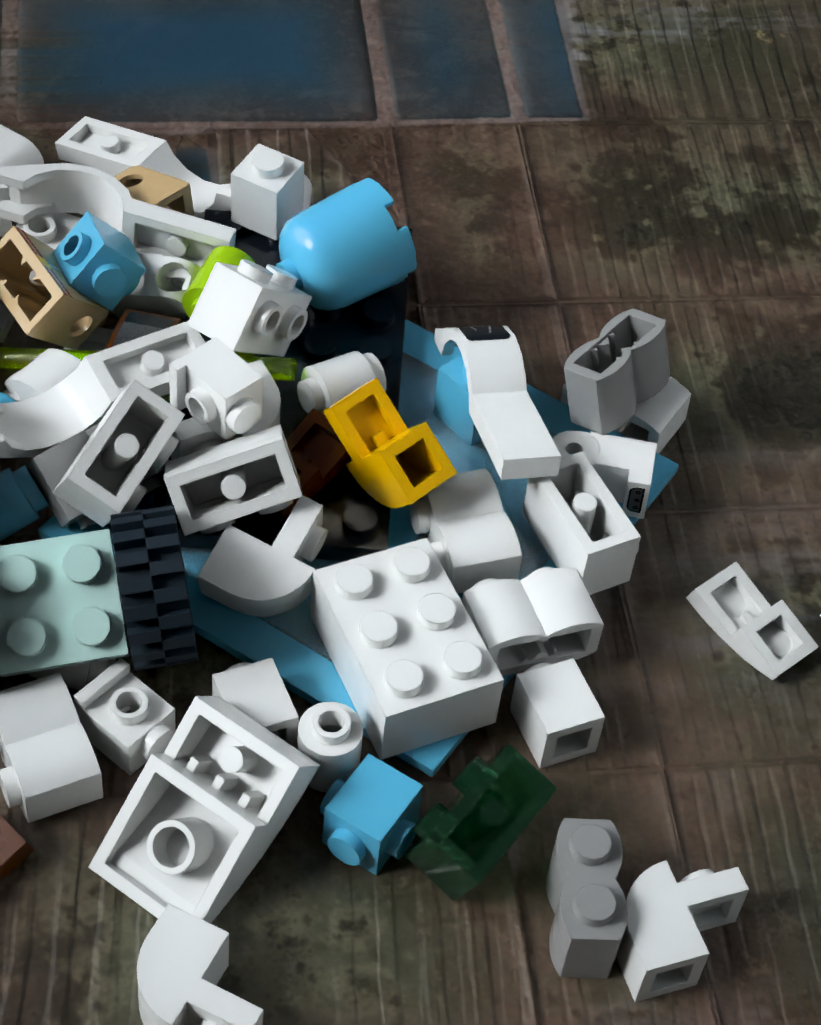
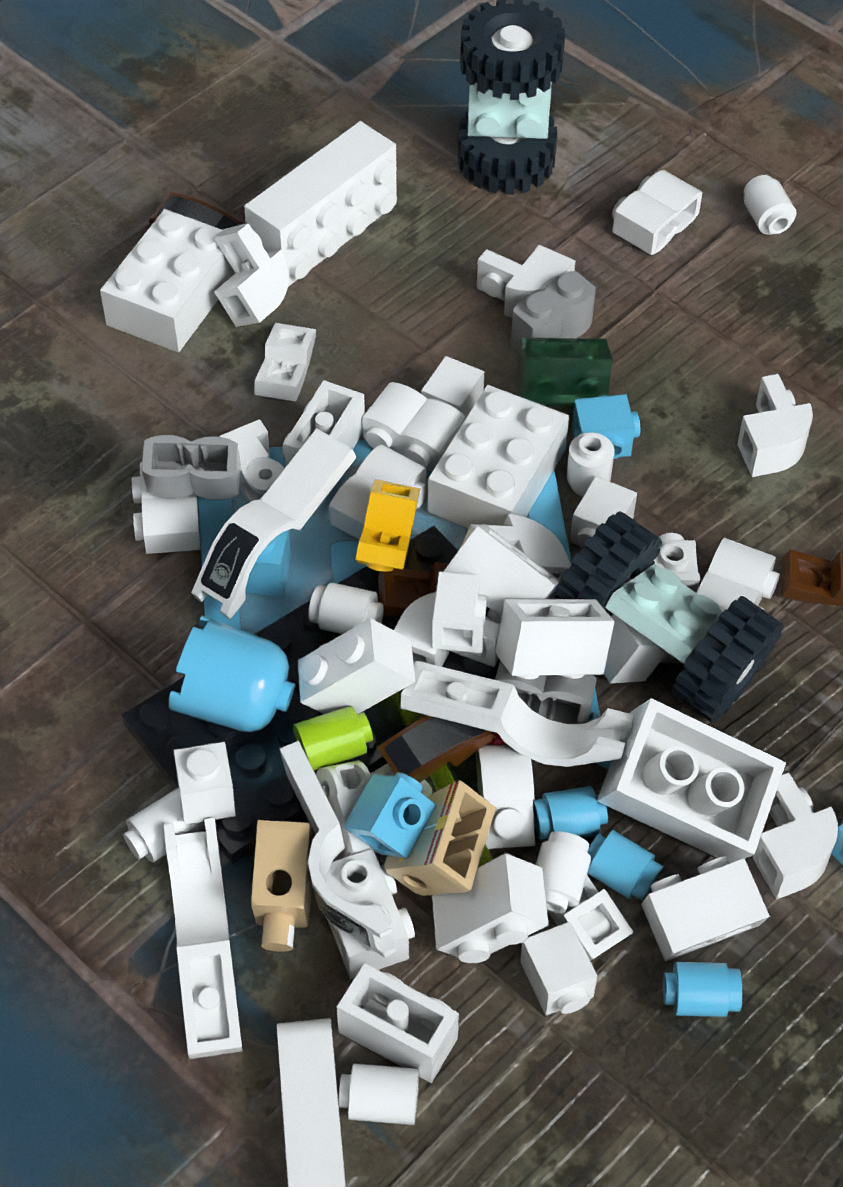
camera: 125 degrees left, 5 degrees up
(203, 812) = (688, 482): white slope -> none

